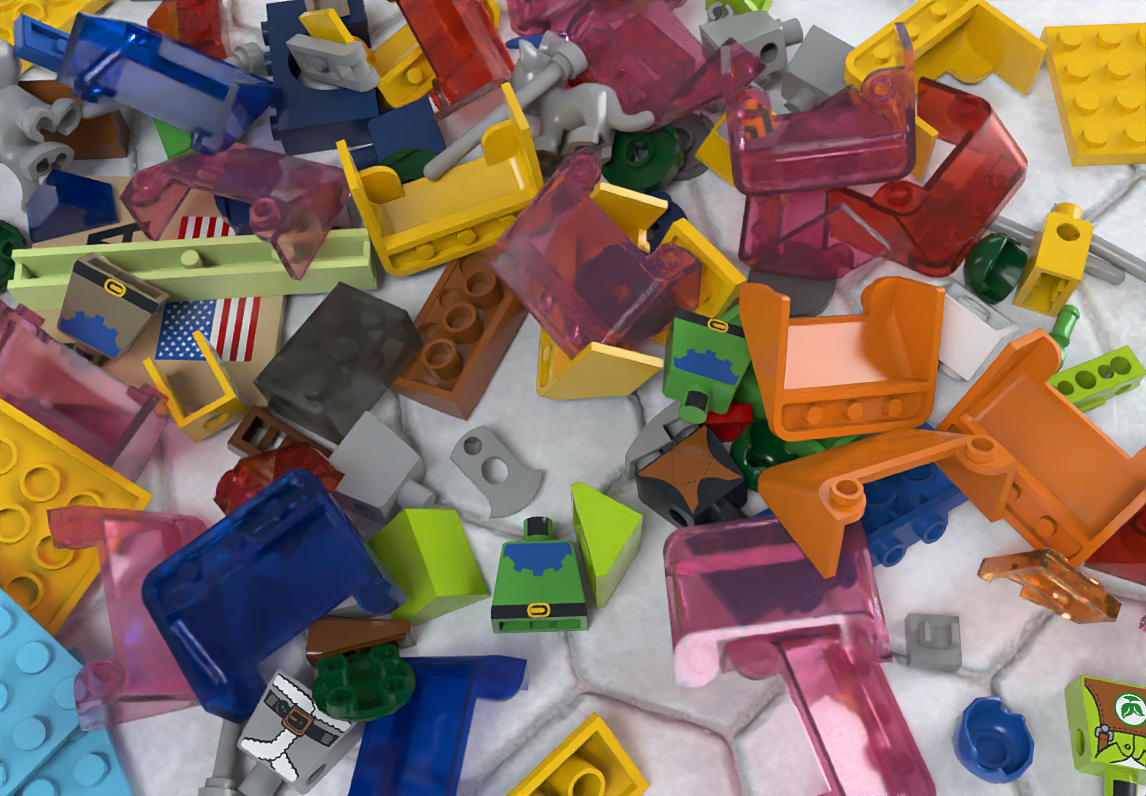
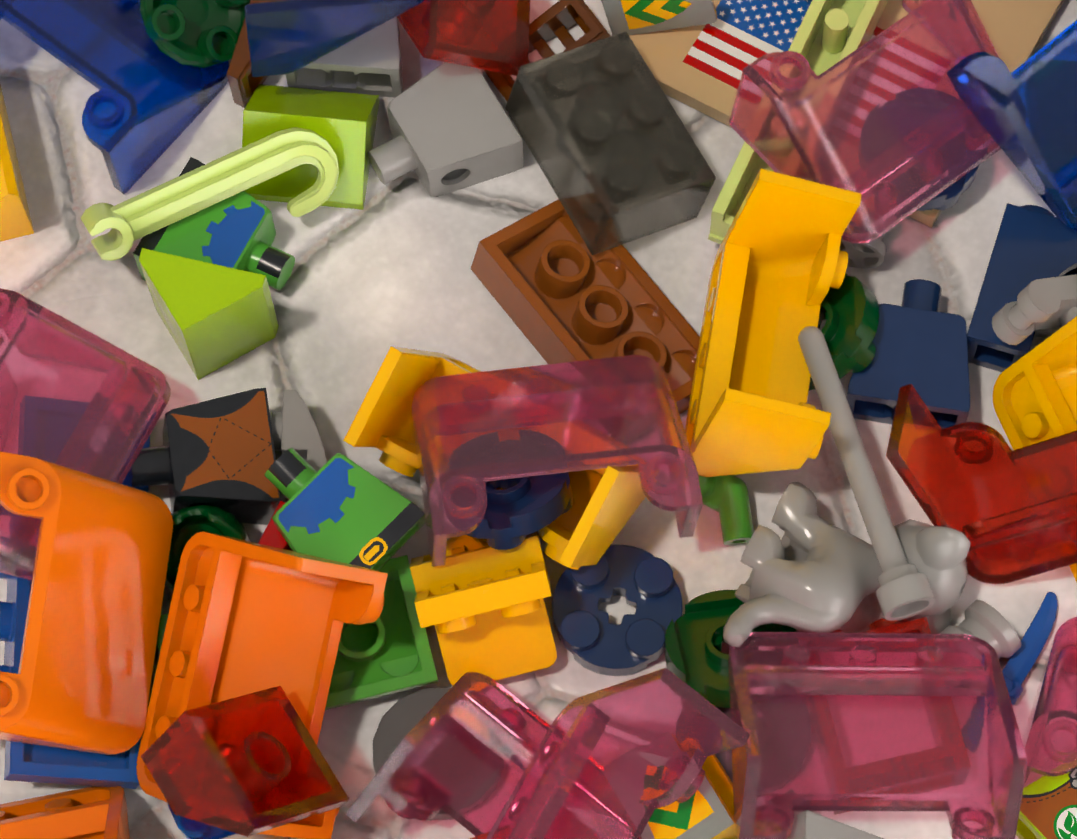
camera: 120 degrees right, 5 degrees up
(458, 543) = (214, 184): none -> yellowish green piece
(506, 497) = (344, 260): light grey piece -> none
(907, 311) = (243, 765): none -> clear red slope

